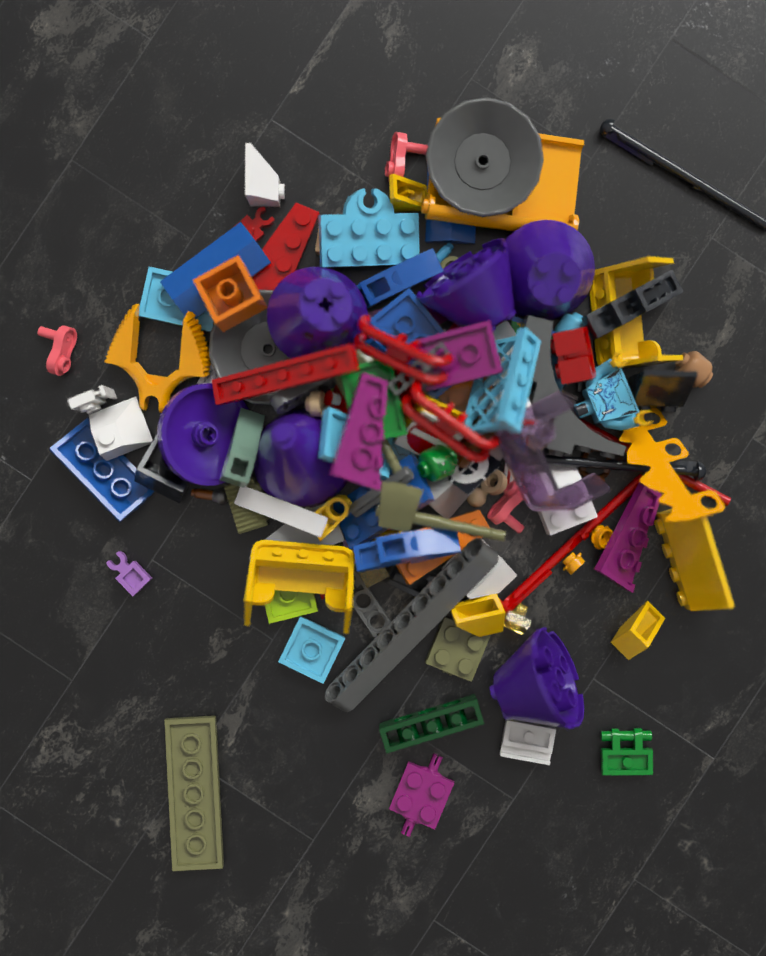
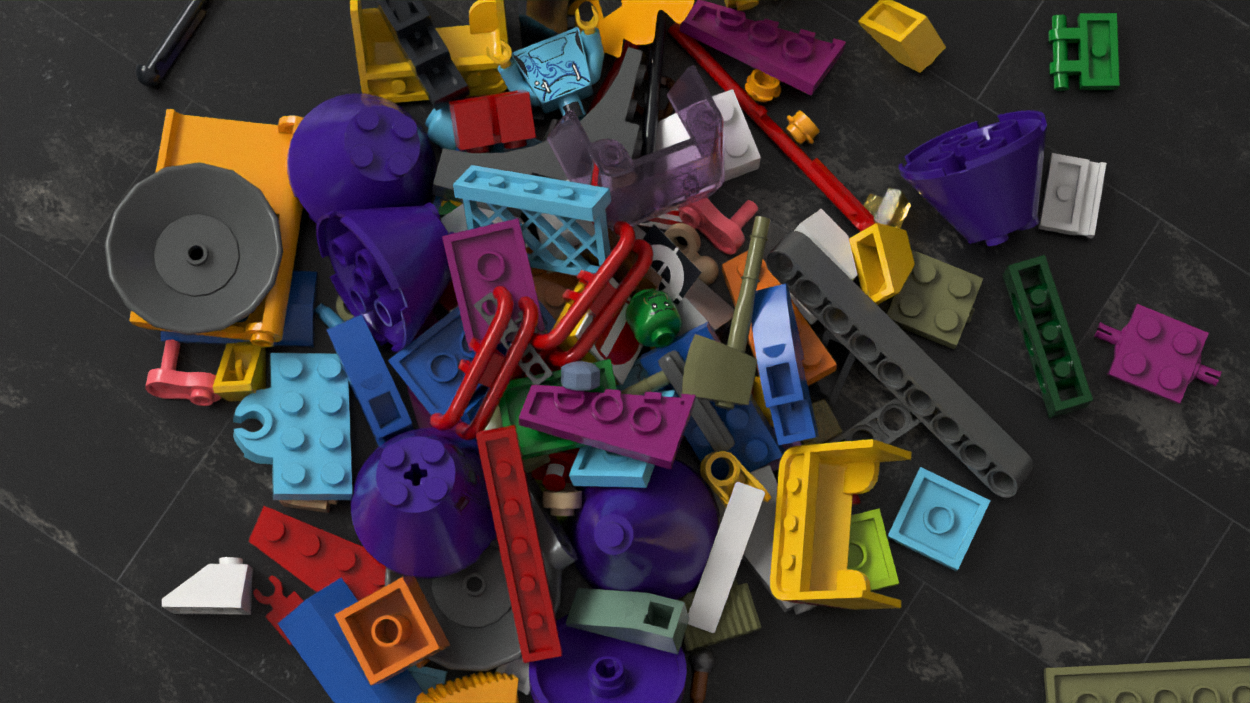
camera: 90 degrees left, 10 degrees down
(392, 413) = (580, 376): none -> sand blue tile

